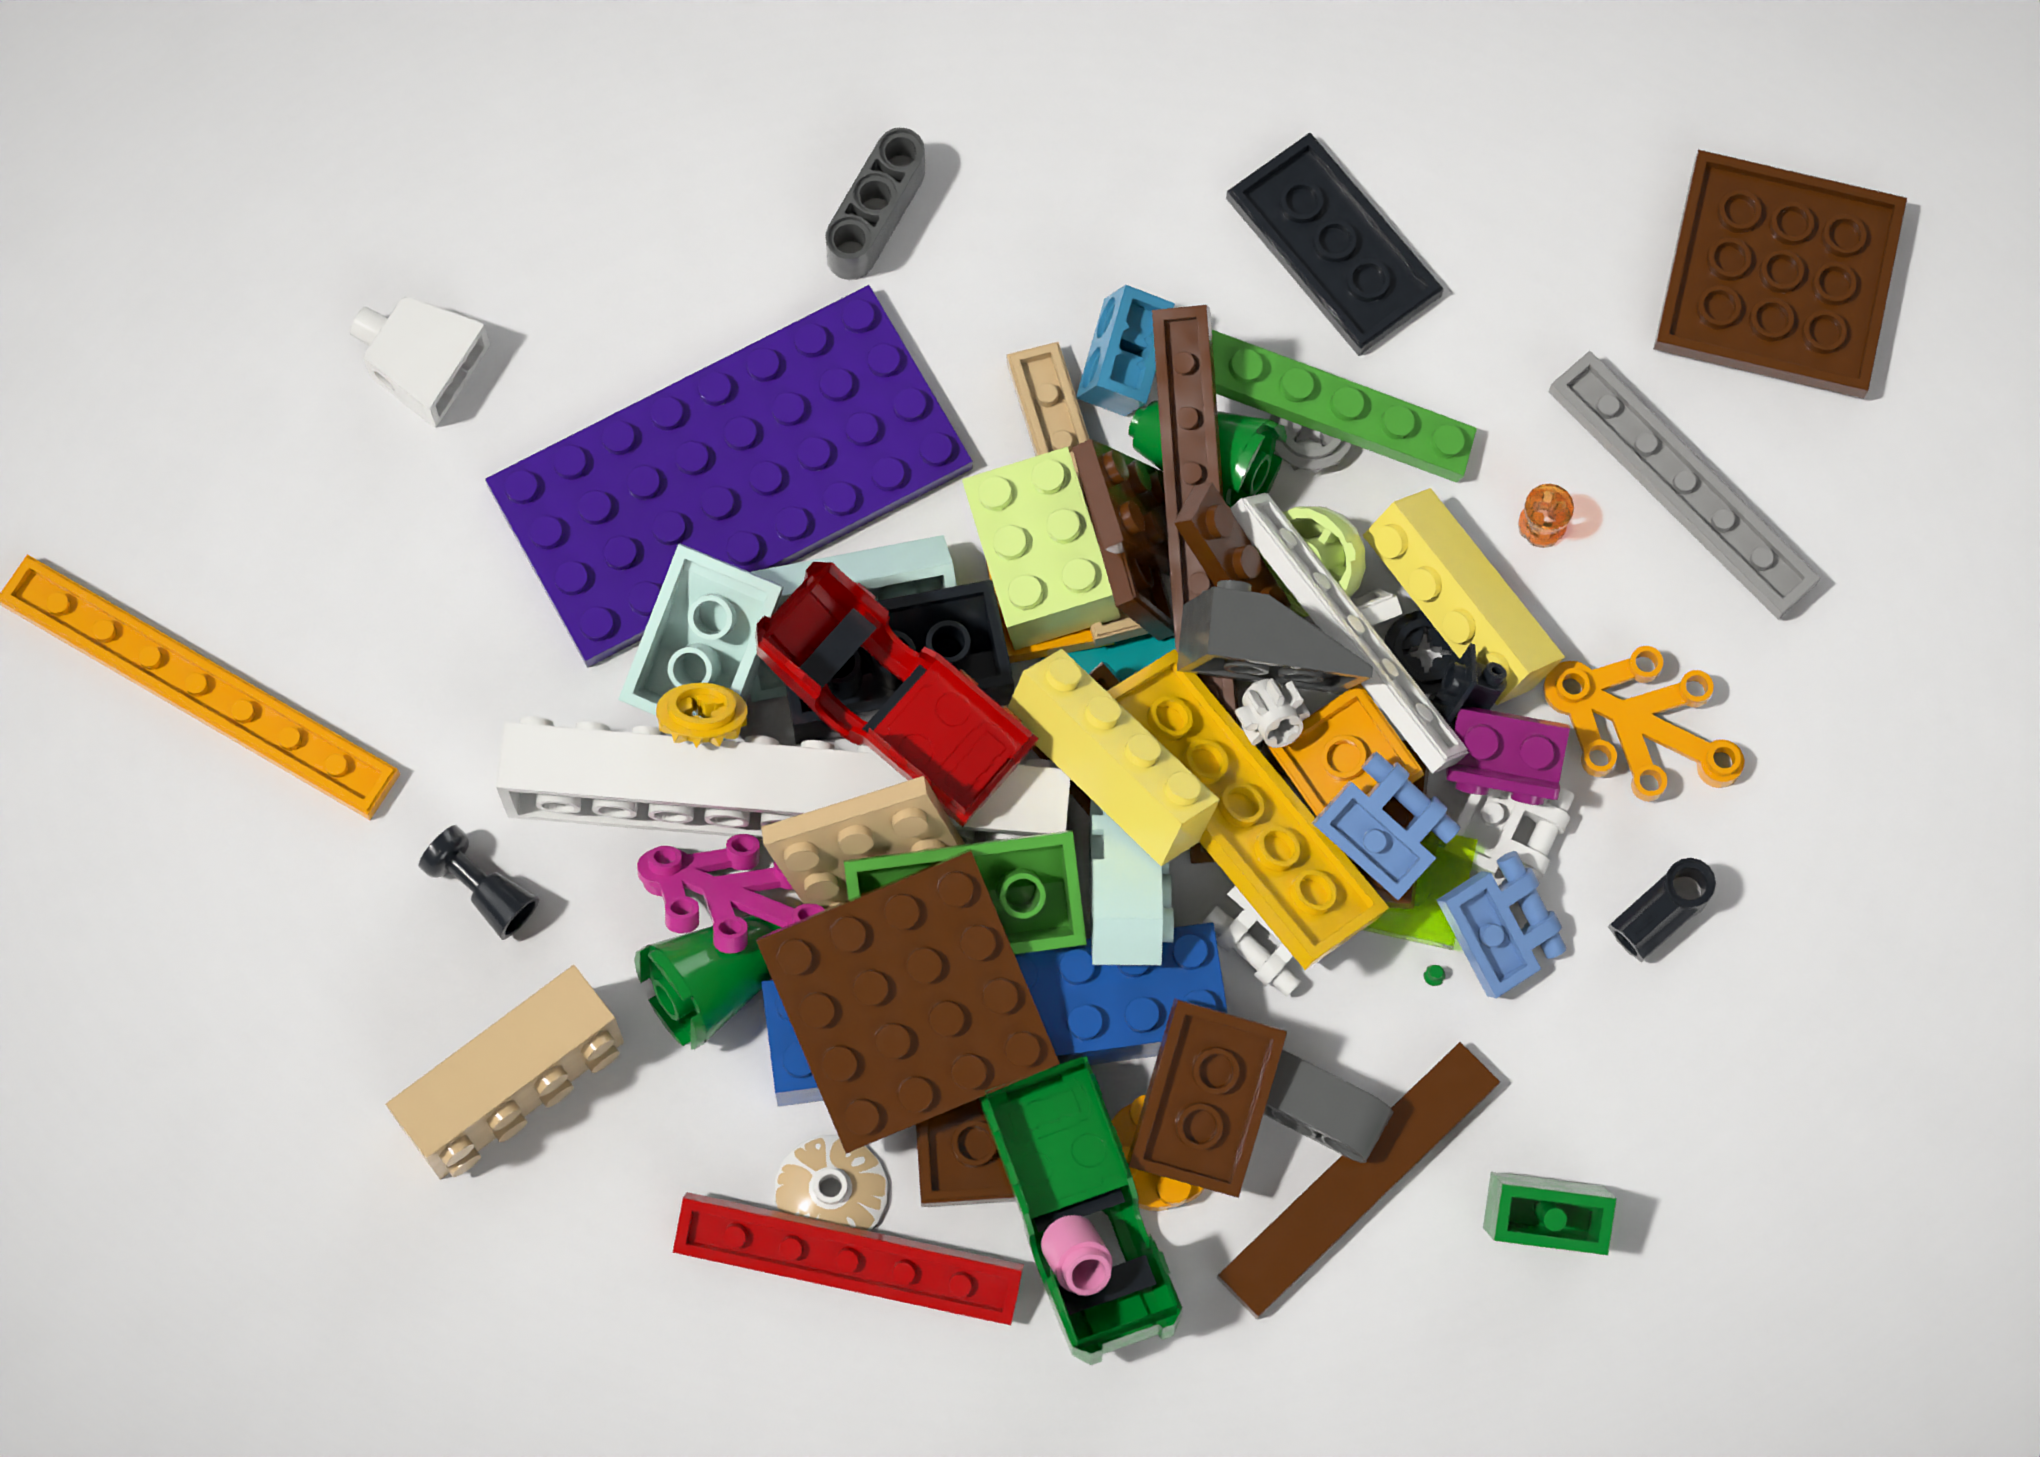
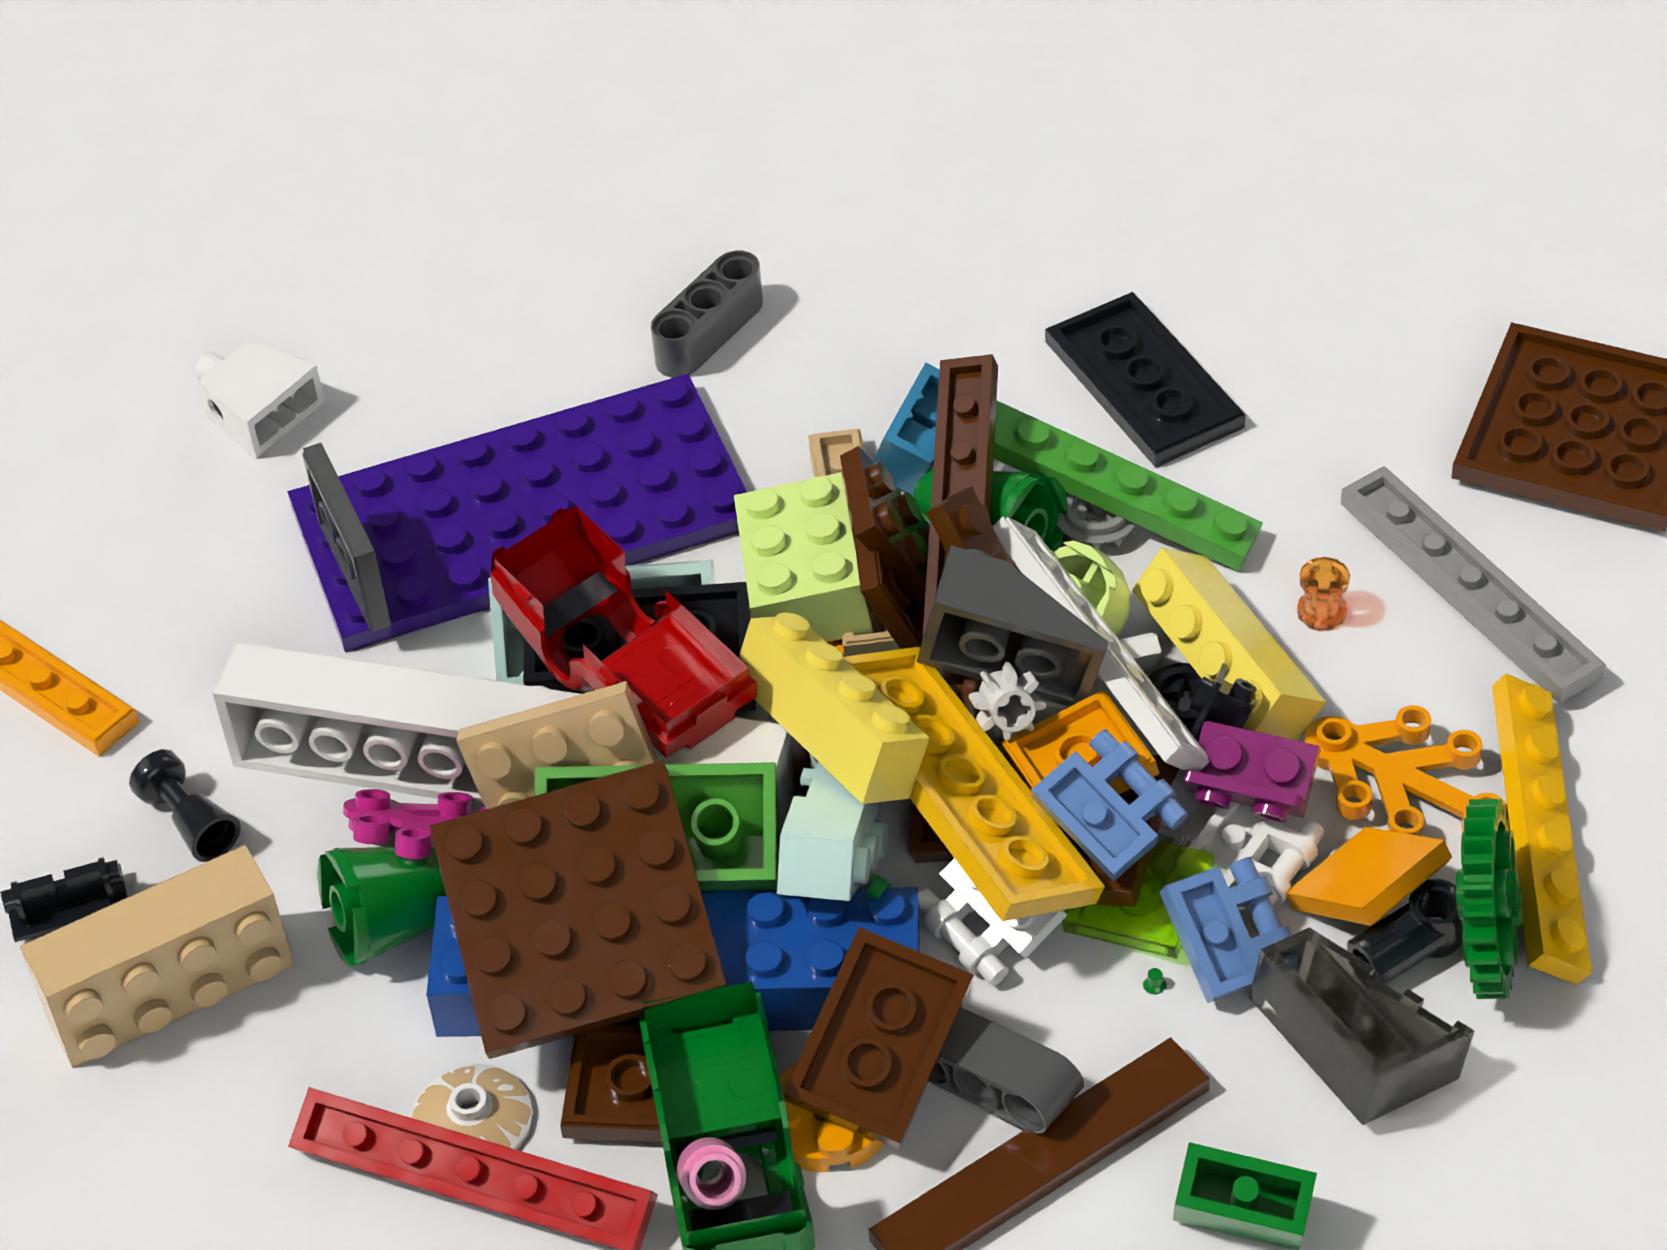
camera: 15 degrees right, 25 degrees down
(388, 1001) = (47, 905): none -> black hinge
(578, 567) = (346, 537): none -> dark grey tile
(700, 629) = (445, 604): light aqua slope -> none
(720, 708) = (429, 650): yellow gear -> none
(1180, 937) = (877, 887): none -> green piece
(1623, 851) = (1369, 875): none -> light orange tile
(1625, 1021) = (1352, 1028): none -> clear smoke wedge
(1742, 889) = (1489, 898): none -> green gear
(1772, 771) = (1541, 830): none -> yellow plate

